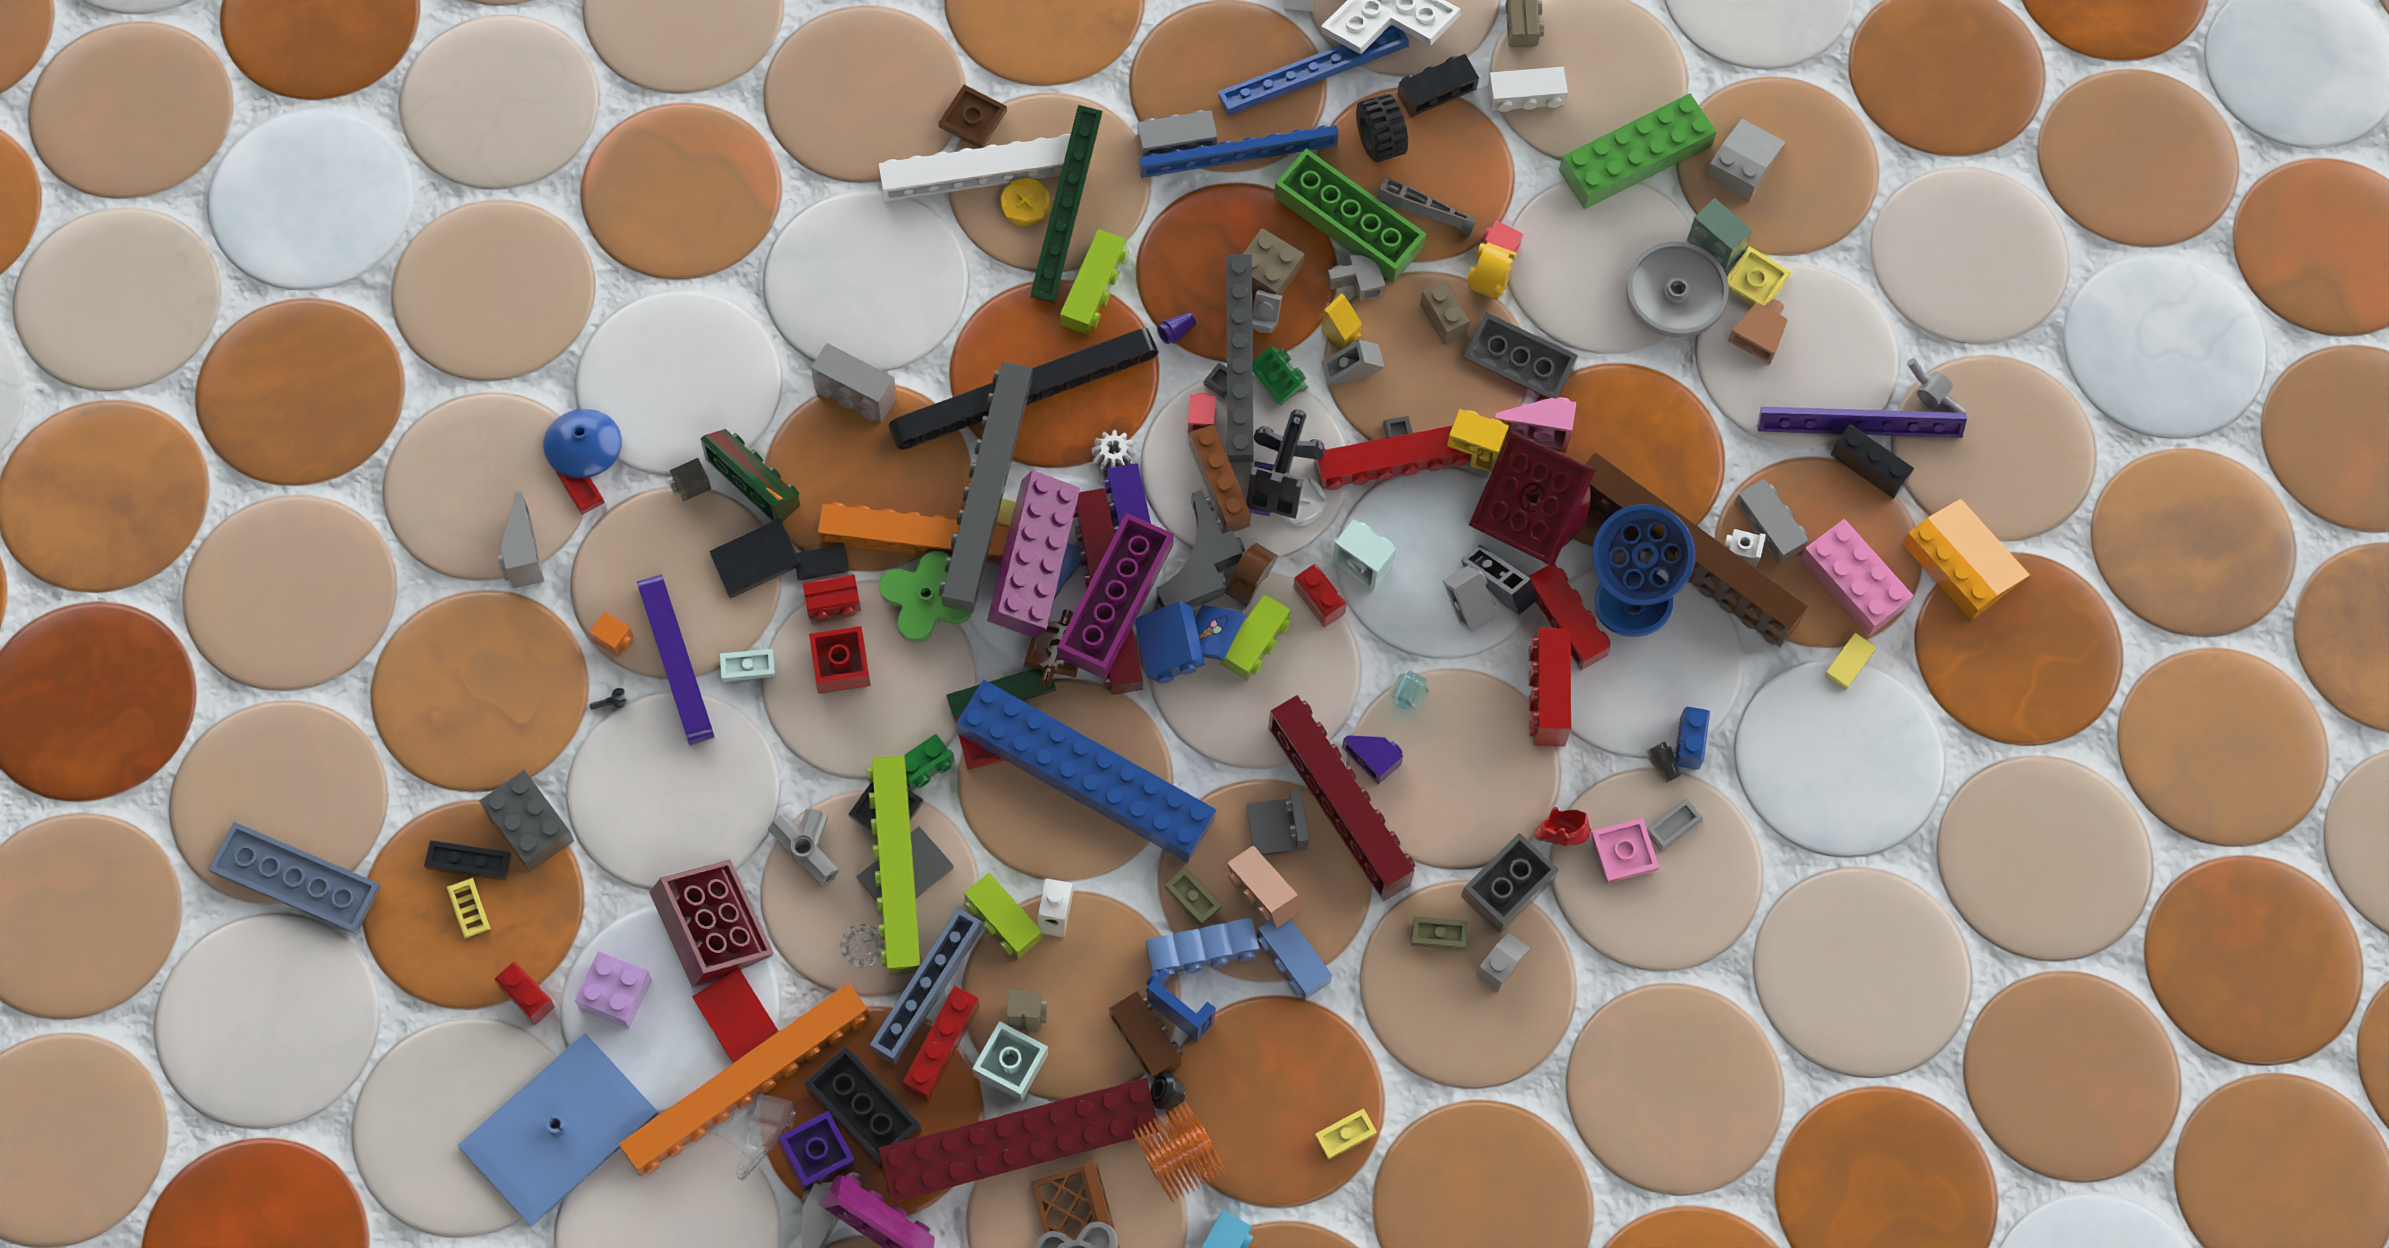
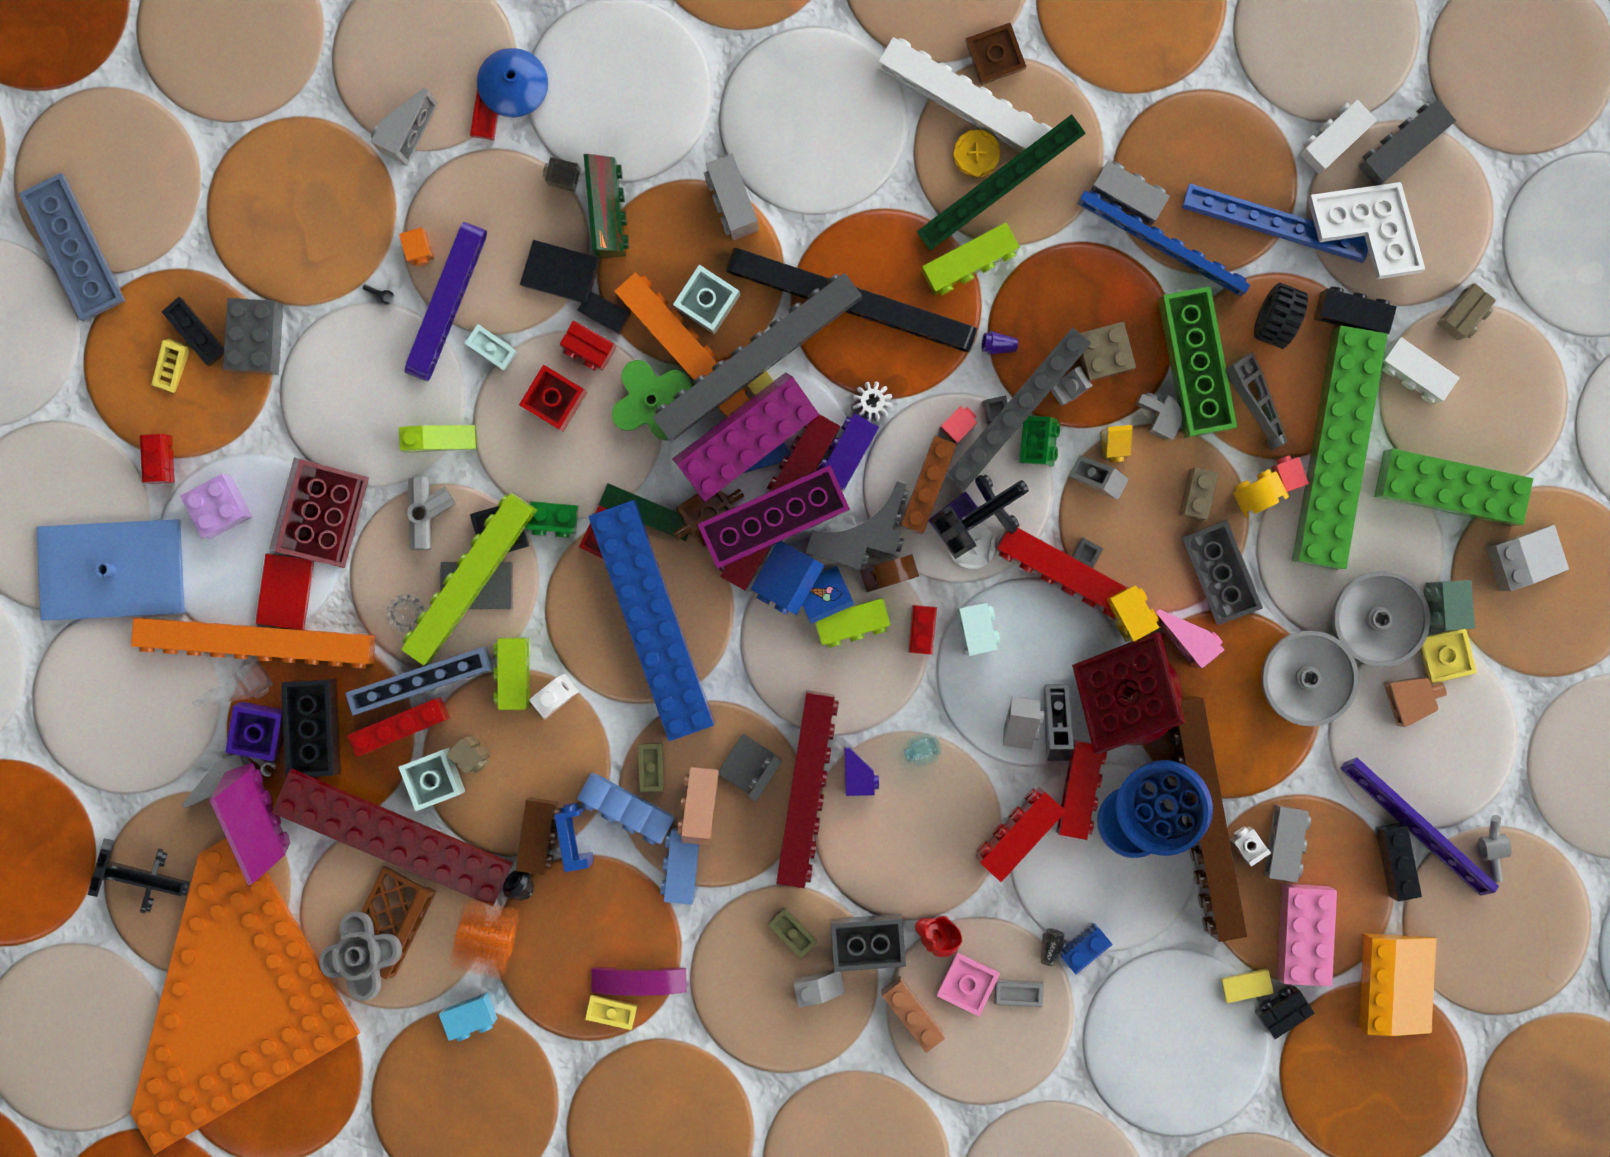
camera: 40 degrees right, 20 degrees up
(763, 777) = (437, 438): none -> lime slope
(902, 479) = (706, 299): none -> light aqua brick
(1343, 1088) = (639, 981): none -> magenta slope
(1522, 192) = (1339, 447): none -> bright green brick
(1602, 912) = (912, 1014): none -> nougat brick
(1665, 378) = (1309, 678): none -> light grey dish
(1899, 654) = (1284, 1011): none -> black brick

